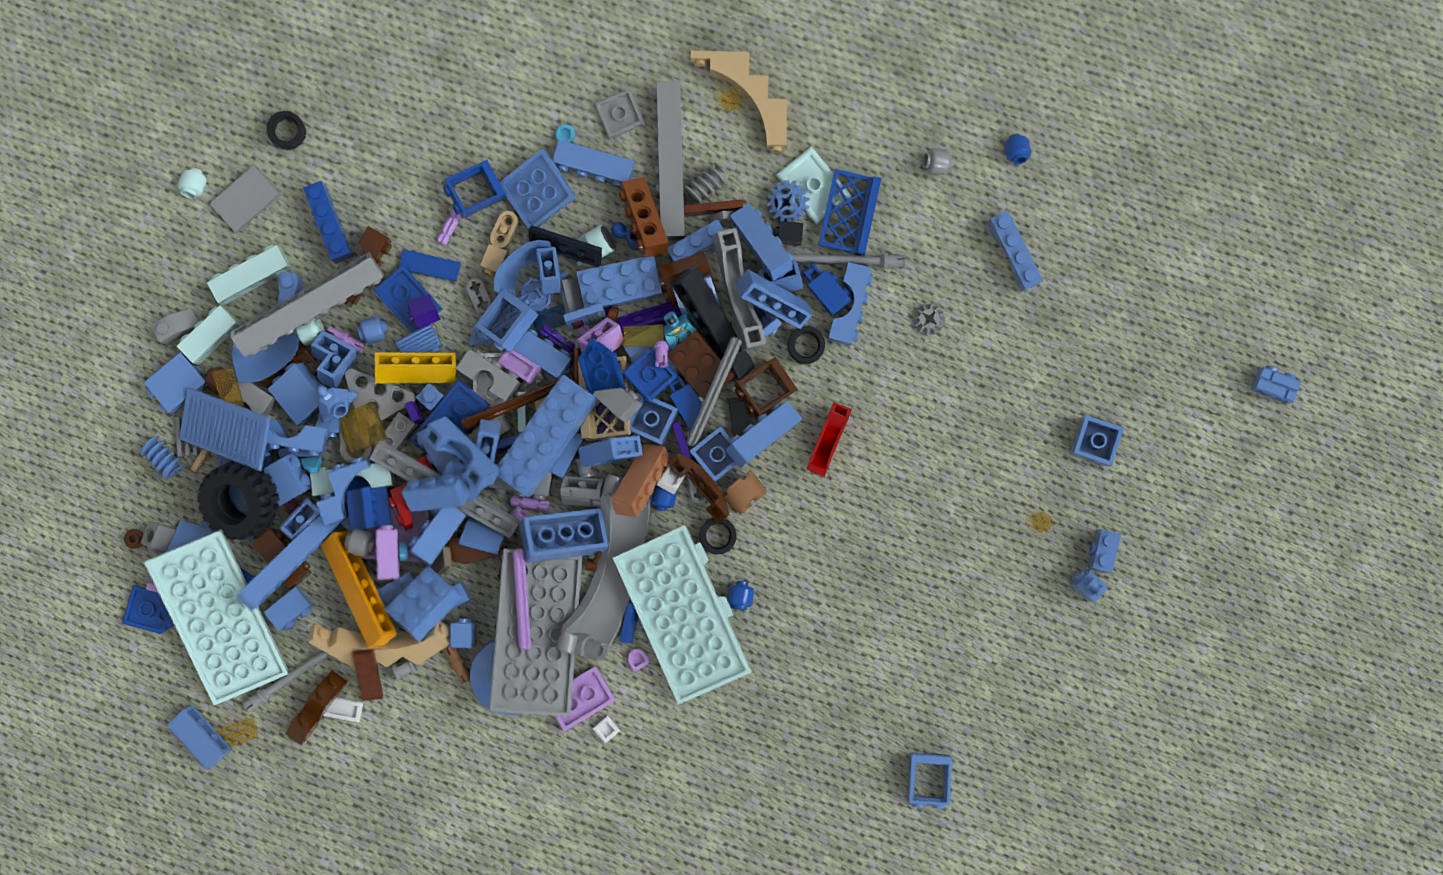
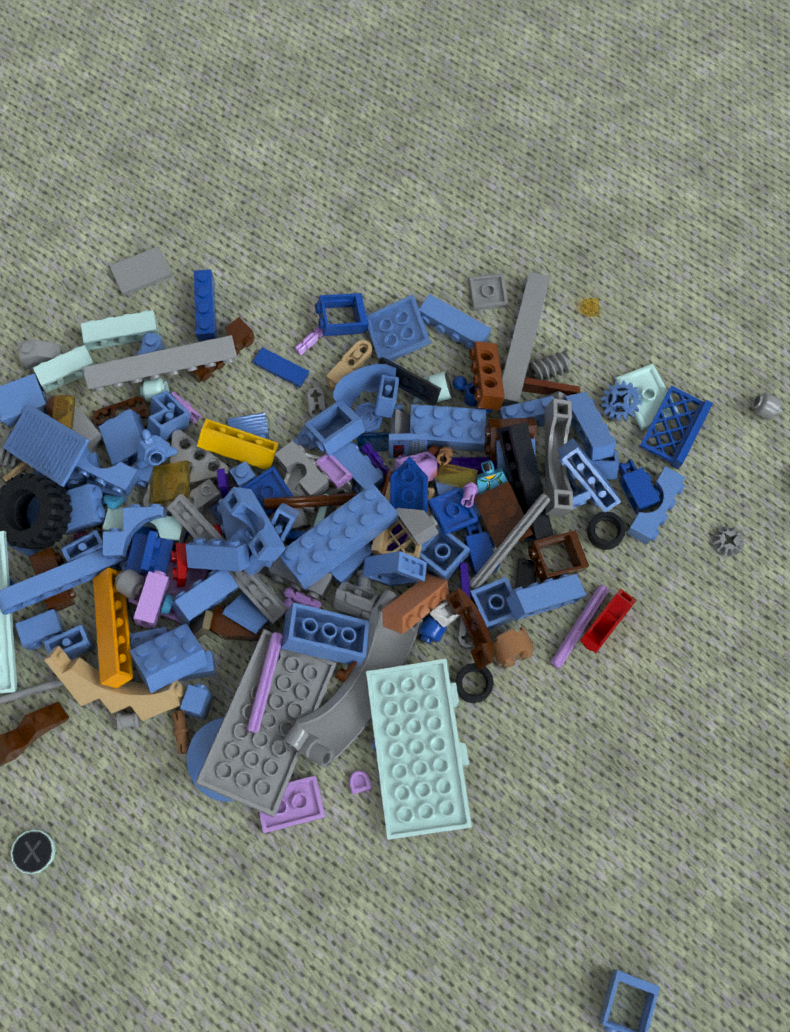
camera: 15 degrees right, 15 degrees down
(192, 183) = (100, 245): light aqua head -> none
(265, 362) = (96, 404): medium blue piece -> none
(273, 122) = (199, 238): black tyre -> none
(324, 613) = (73, 642): none -> medium blue brick
(345, 709) = (56, 744): white tile -> none
(360, 809) = (33, 851): none -> black tile
(368, 674) = (90, 714): copper tile -> none
(372, 330) = (210, 404): medium blue head -> none
(398, 291) = (251, 388): blue tile -> none
(423, 311) = (262, 399): dark purple brick -> none
(565, 133) = (436, 292): medium azure tile -> none
(606, 729) = (306, 845): white tile -> none
(625, 317) = (445, 455): none -> medium nougat pin
(629, 624) = (362, 743): blue tile -> none
(735, 70) = (600, 282): tan arch -> none
(740, 595) = (480, 748): blue head -> none
(790, 233) = (617, 427): black brick -> none
(804, 449) = (579, 626): none -> lavender axle
(884, 260) = (698, 477): light grey bar -> none

